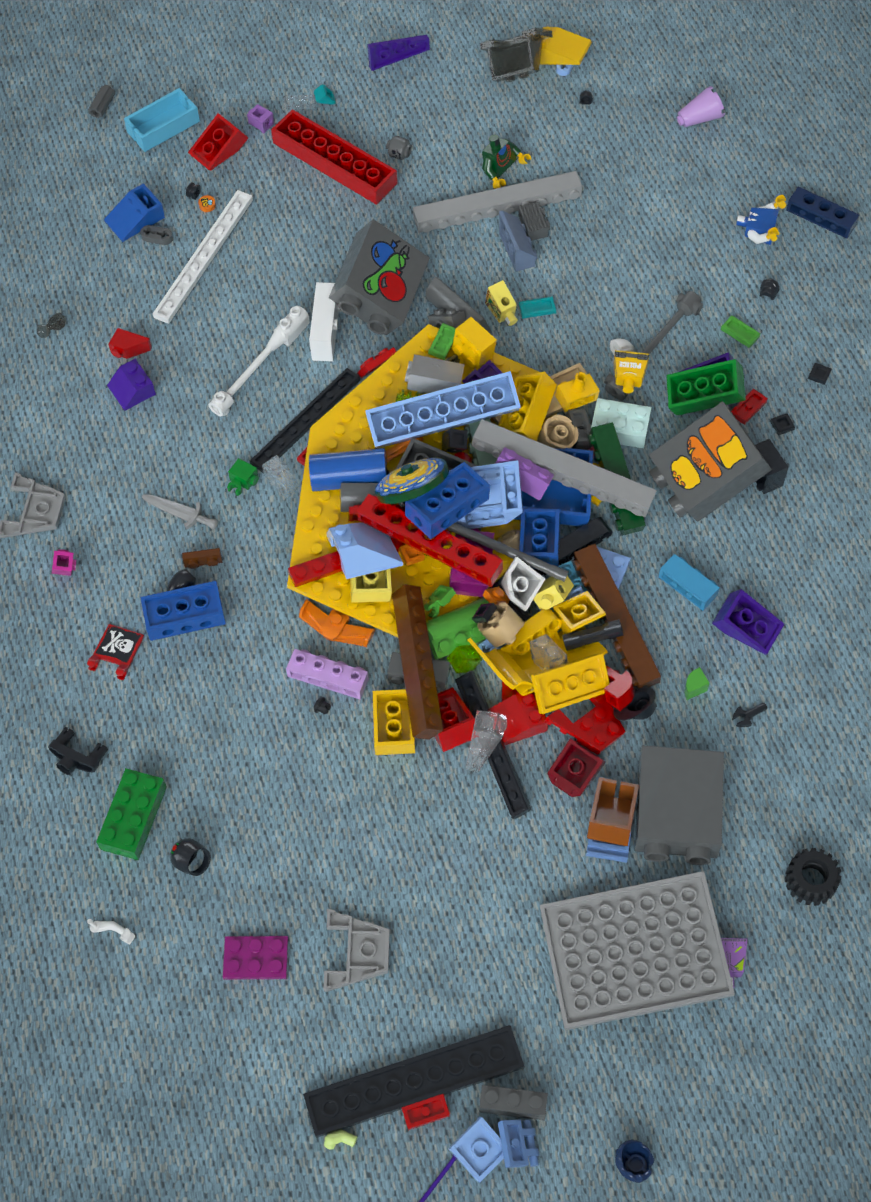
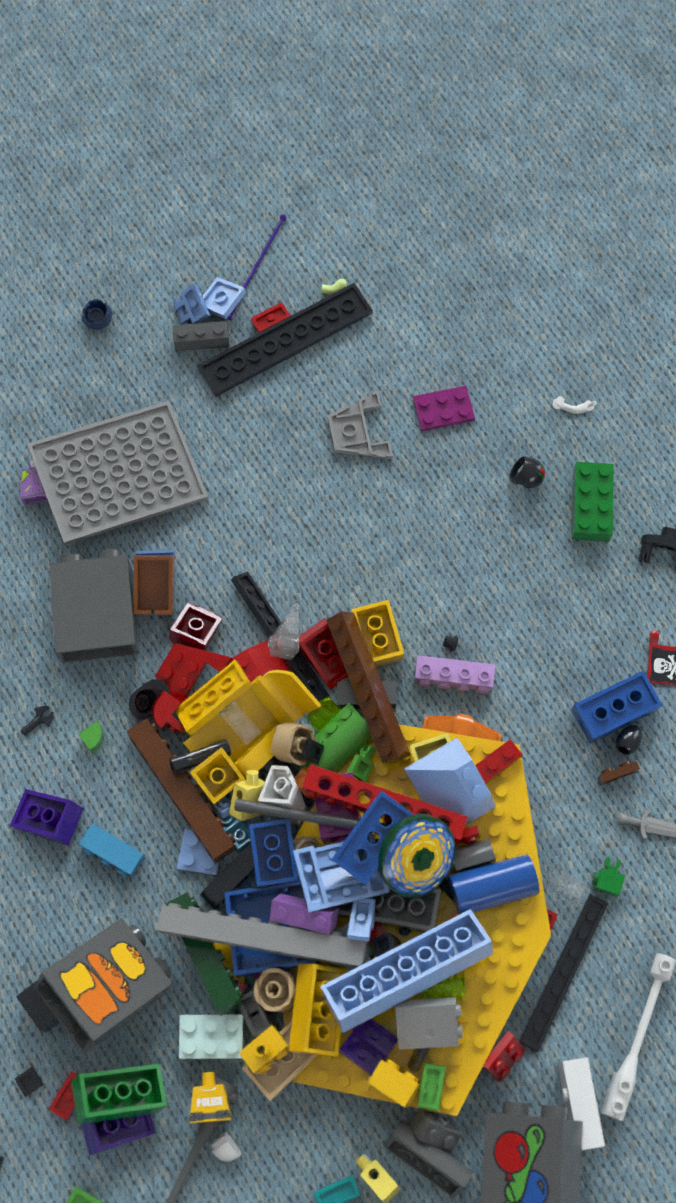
camera: 165 degrees right, 10 degrees up
(474, 450) = (361, 919): none -> light blue slope

